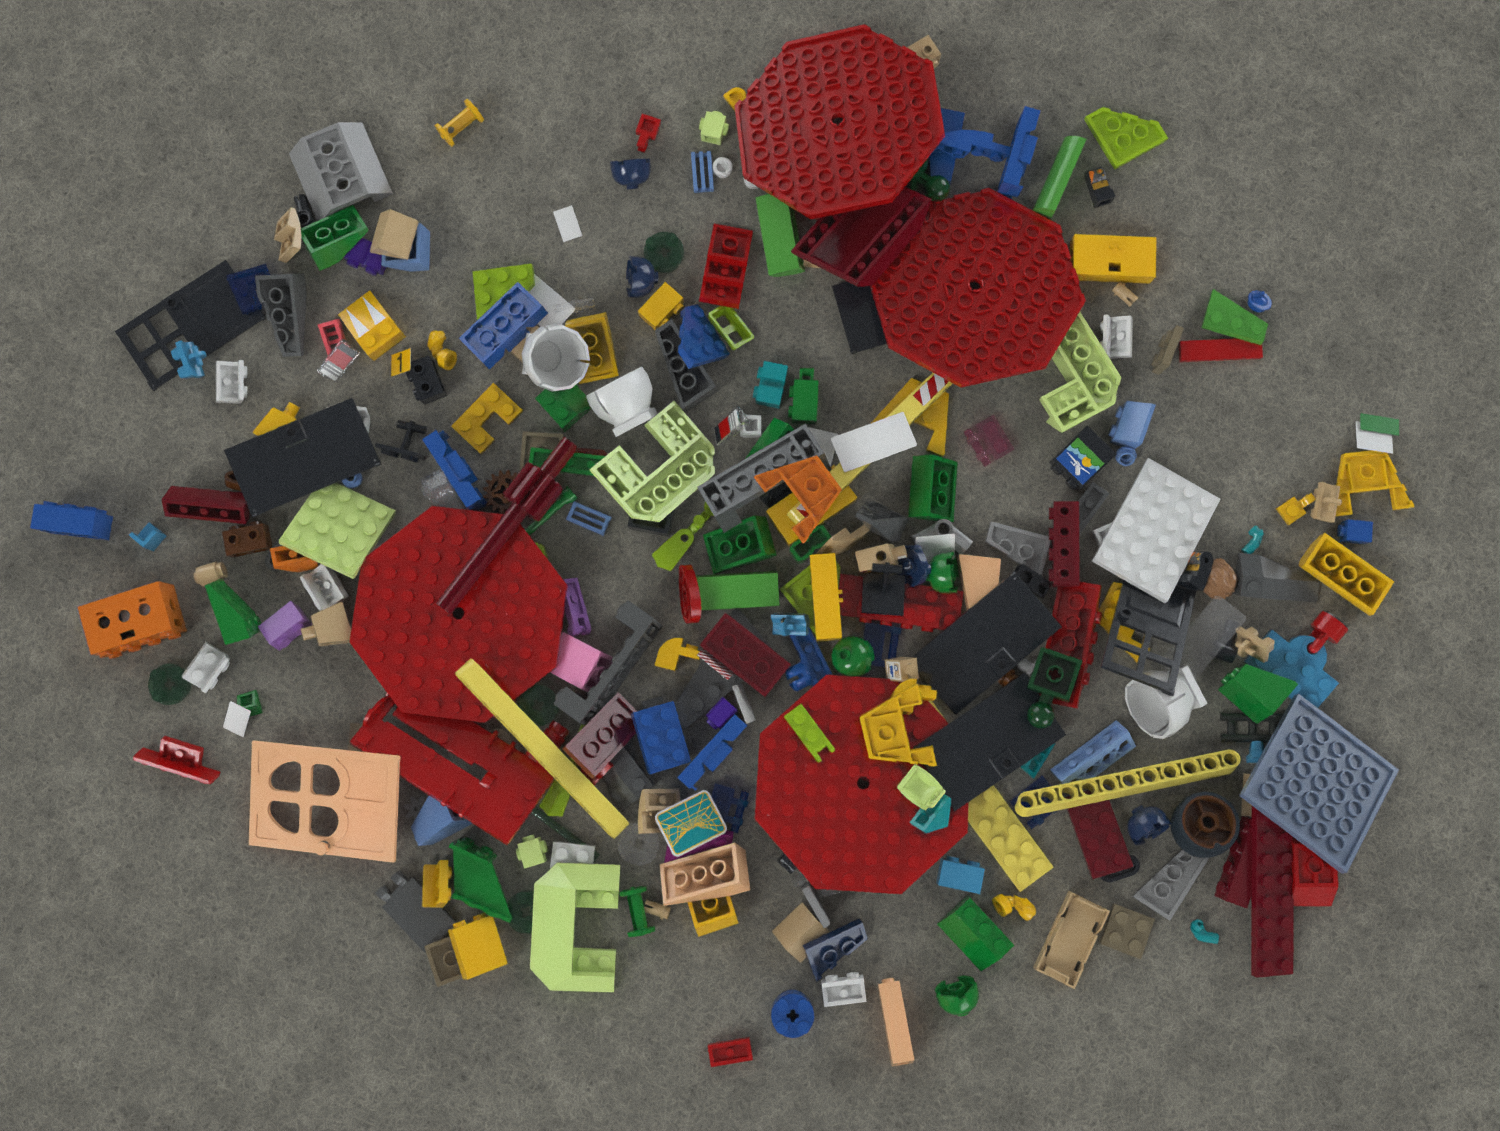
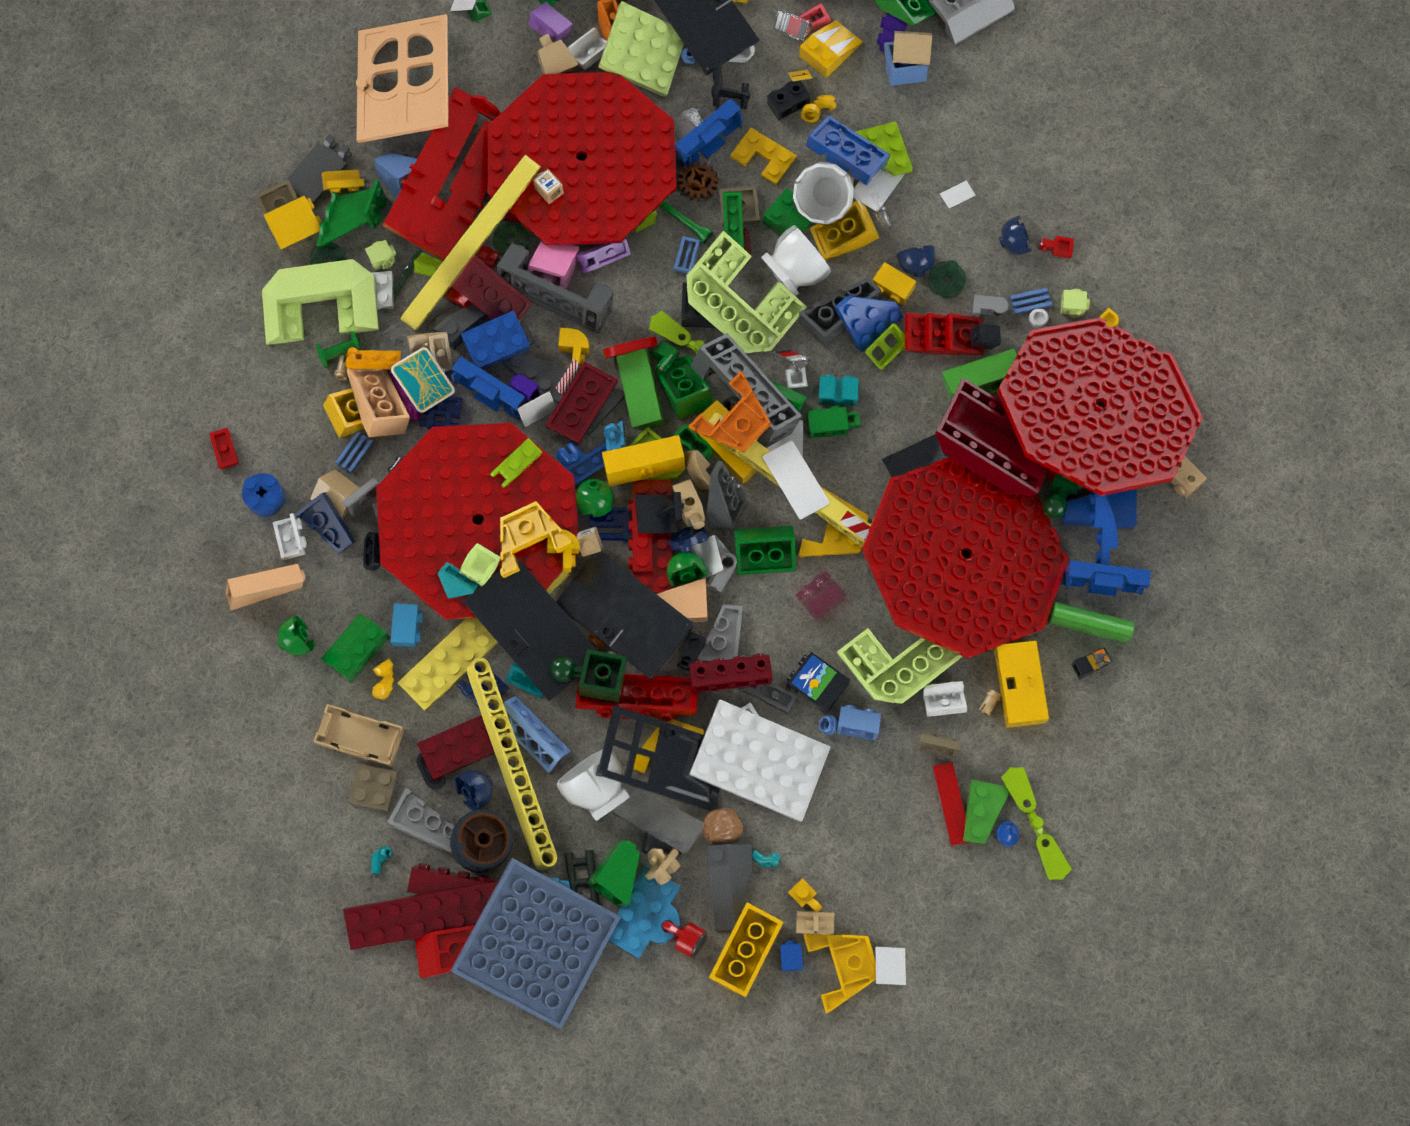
camera: 75 degrees right, 10 degrees down
(459, 122) = (1031, 86): yellow hose -> none
(492, 654) = (548, 186): none -> tan brick
(531, 496) = (695, 195): dark red axle -> none
(657, 874) = (371, 359): none -> light orange plate
(701, 557) = (665, 355): none -> green piece
(704, 208) = (989, 306): none -> light grey leg
(737, 223) = (985, 336): none -> black brick
(769, 919) = (348, 448): none -> medium blue tile
(873, 902) = (371, 554): none -> black plate
(1124, 135) = (1149, 681): lime plate -> none
(1197, 571) = (724, 802): black leg -> none
(1284, 264) = (1051, 856): none -> lime piece
(1379, 424) = (905, 971): green sticker -> none

